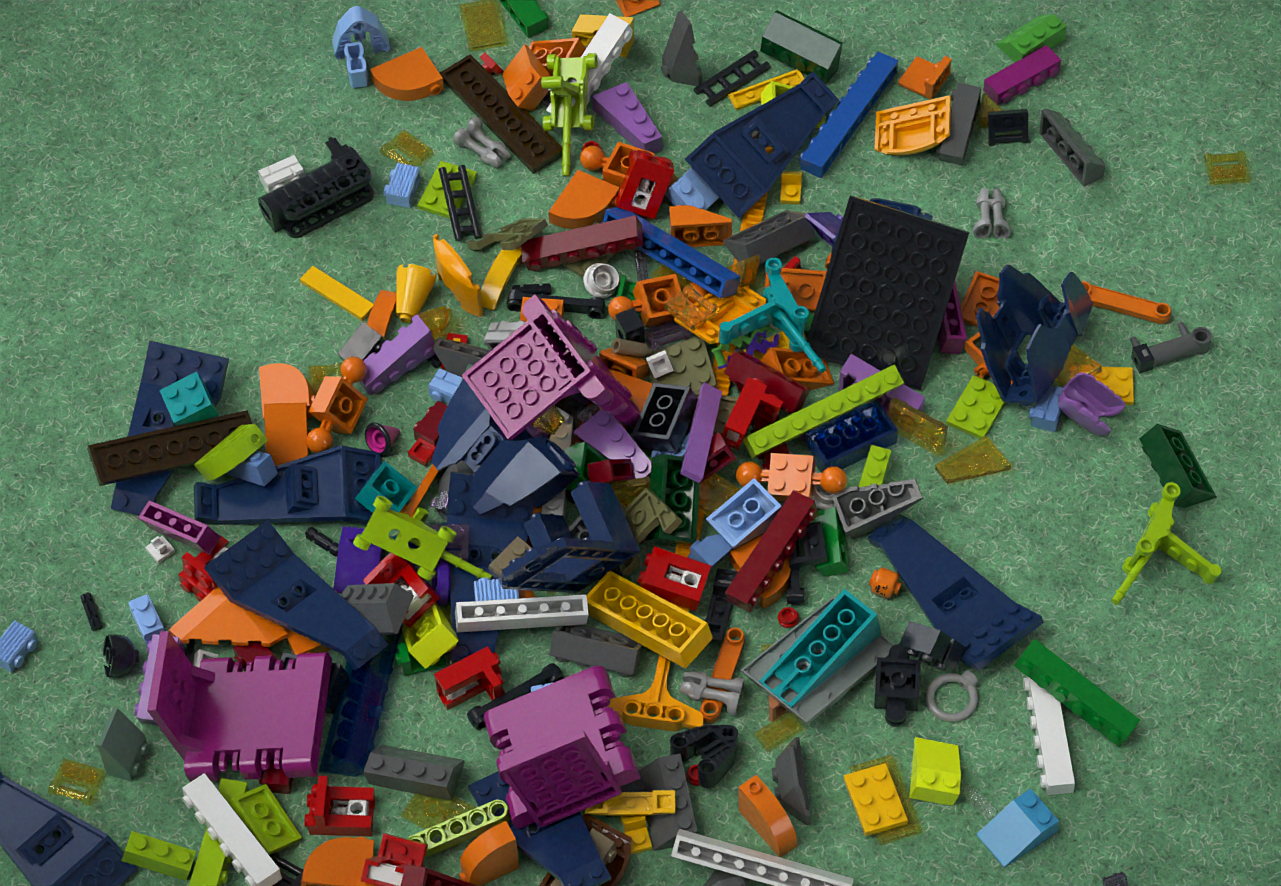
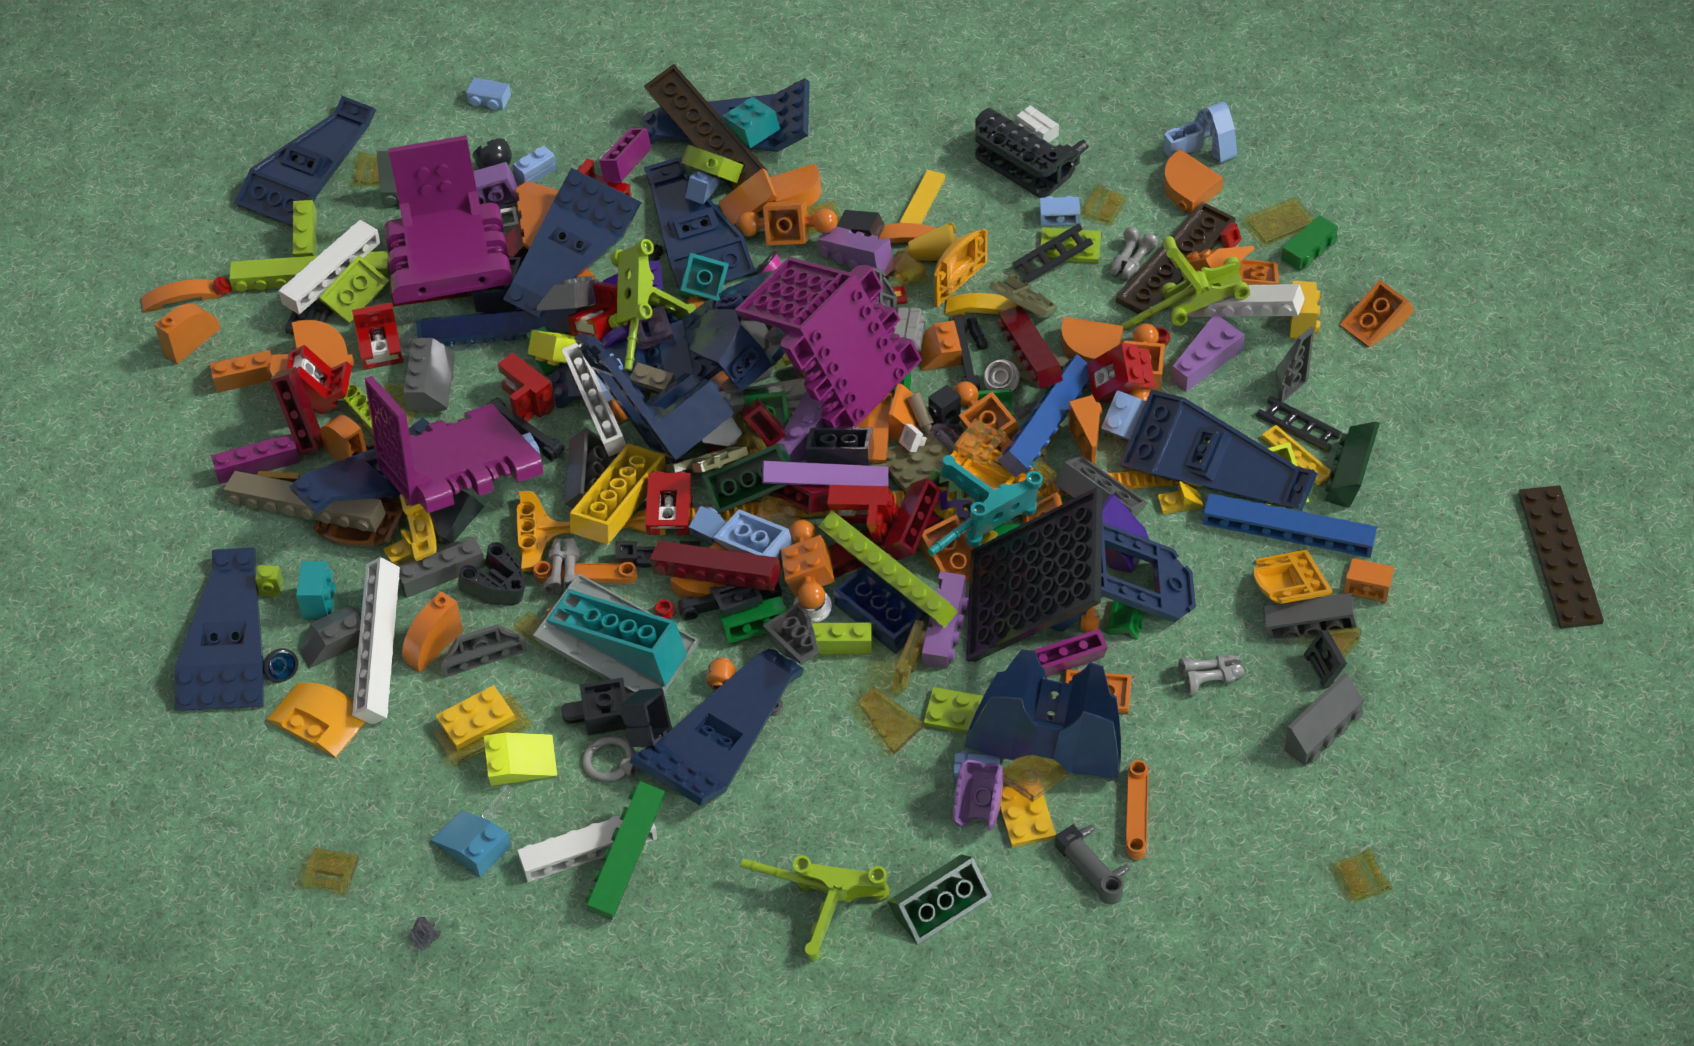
camera: 75 degrees right, 5 degrees down
(91, 611) = (538, 133): black axle -> none
(1022, 75) = (1407, 661): magenta brick -> none
(1033, 36) = (1462, 662): bright green slope -> none

